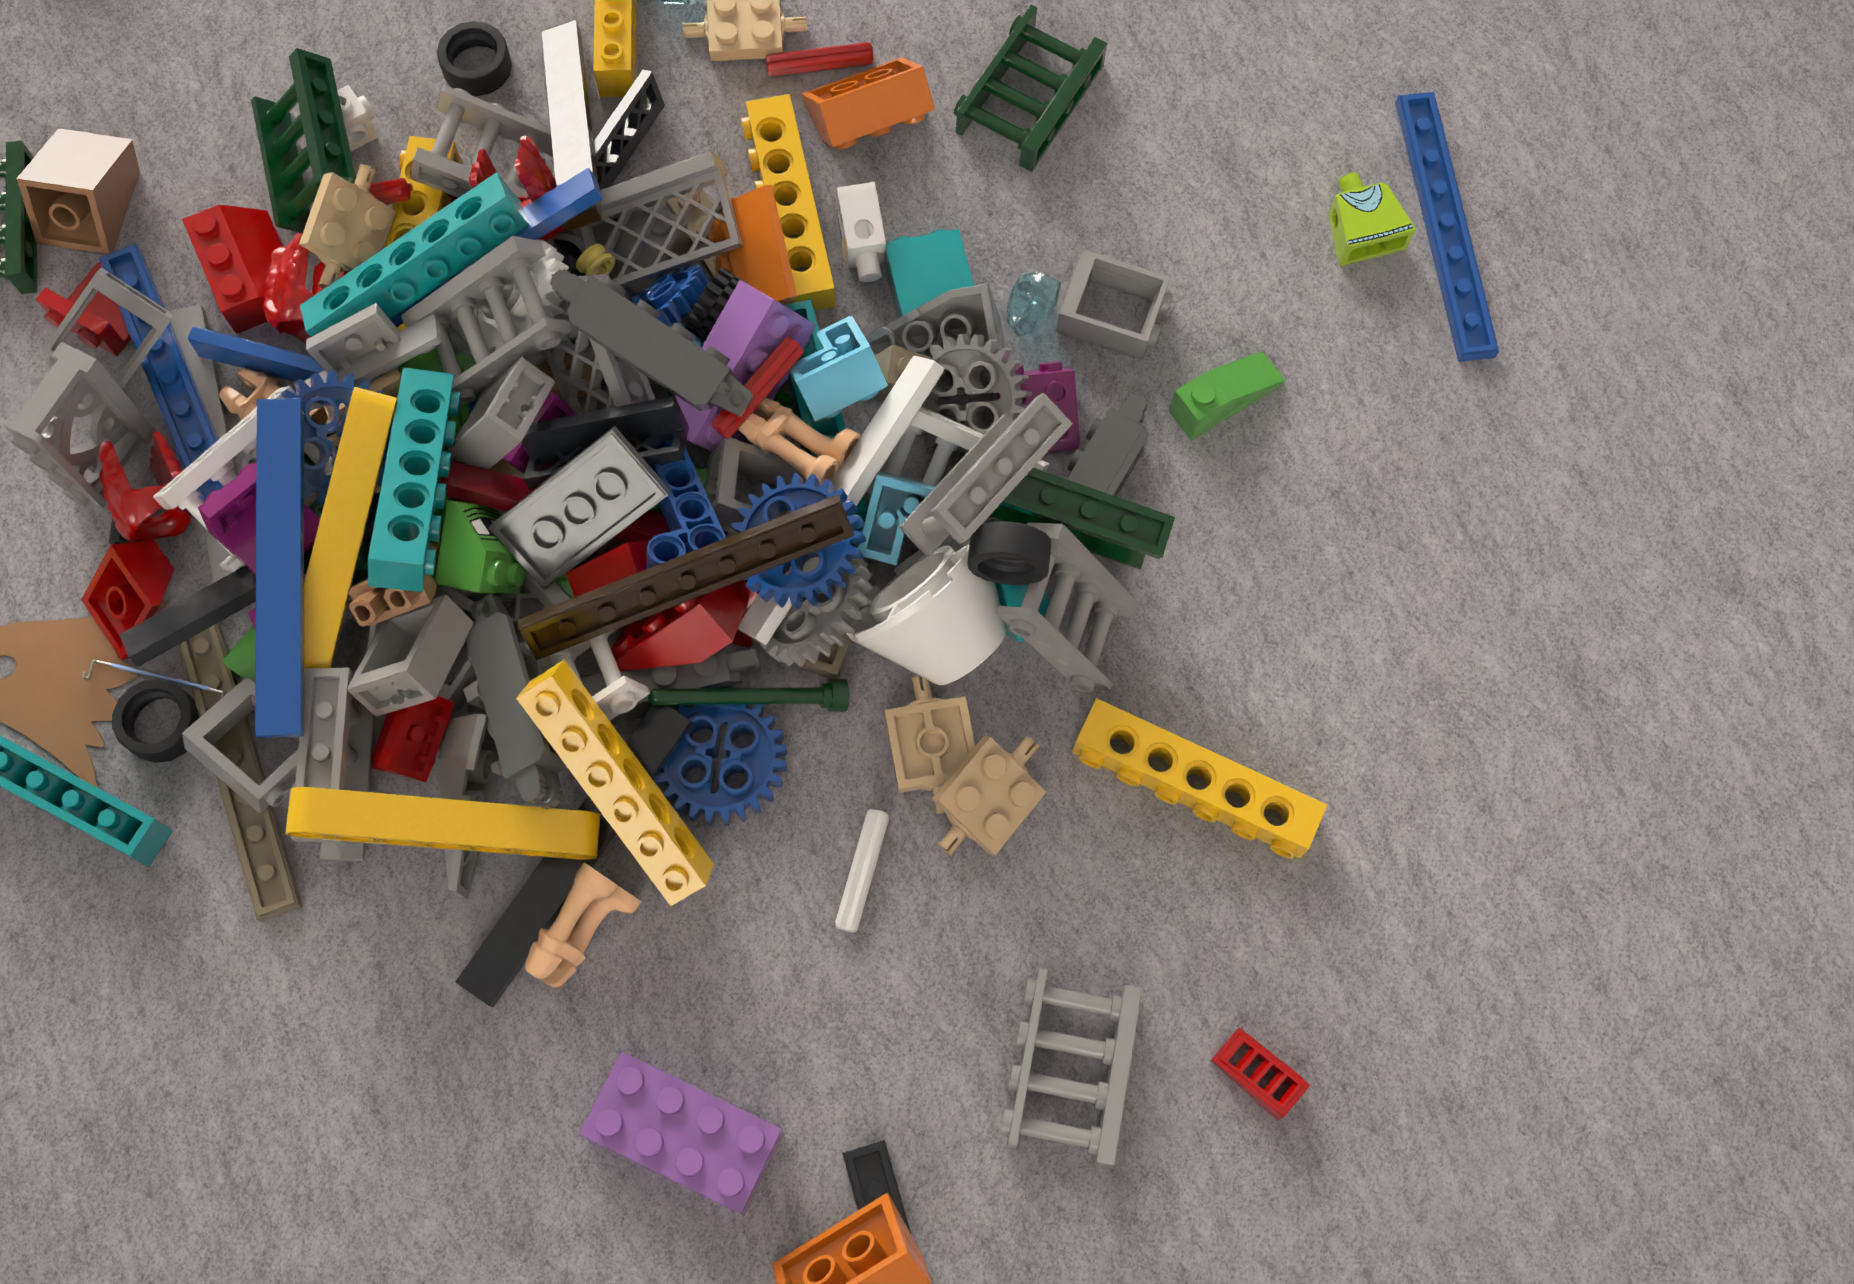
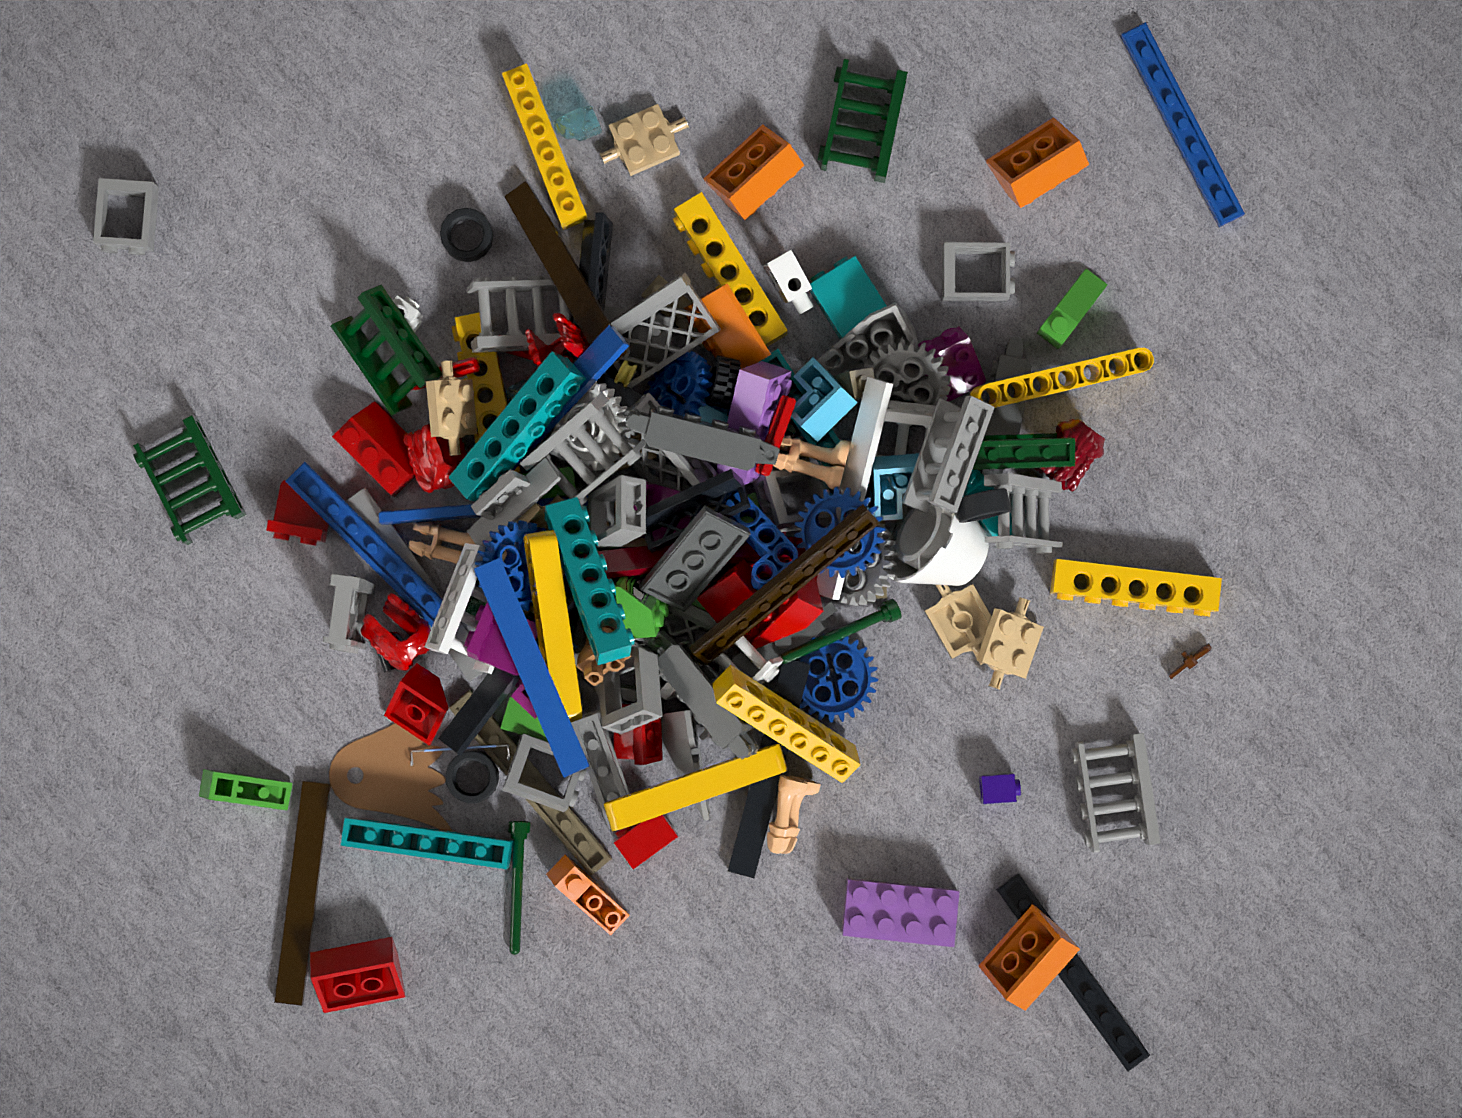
camera: 15 degrees left, 15 degrees up
(79, 190) = (246, 433): medium nougat slope -> none
(127, 298) = (336, 514): light grey window -> none
(183, 821) = (518, 832): none -> dark green piece
(238, 944) = (587, 894): none -> orange slope
(355, 887) = (644, 839): none -> red brick
(819, 59) = (706, 147): red axle -> none
(862, 871) = (946, 716): white axle -> none
(899, 999) = (999, 788): none -> dark purple brick
(1031, 302) = (920, 291): clear light blue rock -> none
(1154, 581) = (1088, 447): none -> dark red piece
(1200, 456) = (1074, 377): none -> yellow beam
(1242, 205) = (1038, 162): none -> orange slope
(1243, 913) = (1191, 660): none -> reddish brown piece
(1283, 1072) = (1232, 747): red slope -> none
(1367, 221) = (1127, 145): lime torso -> none

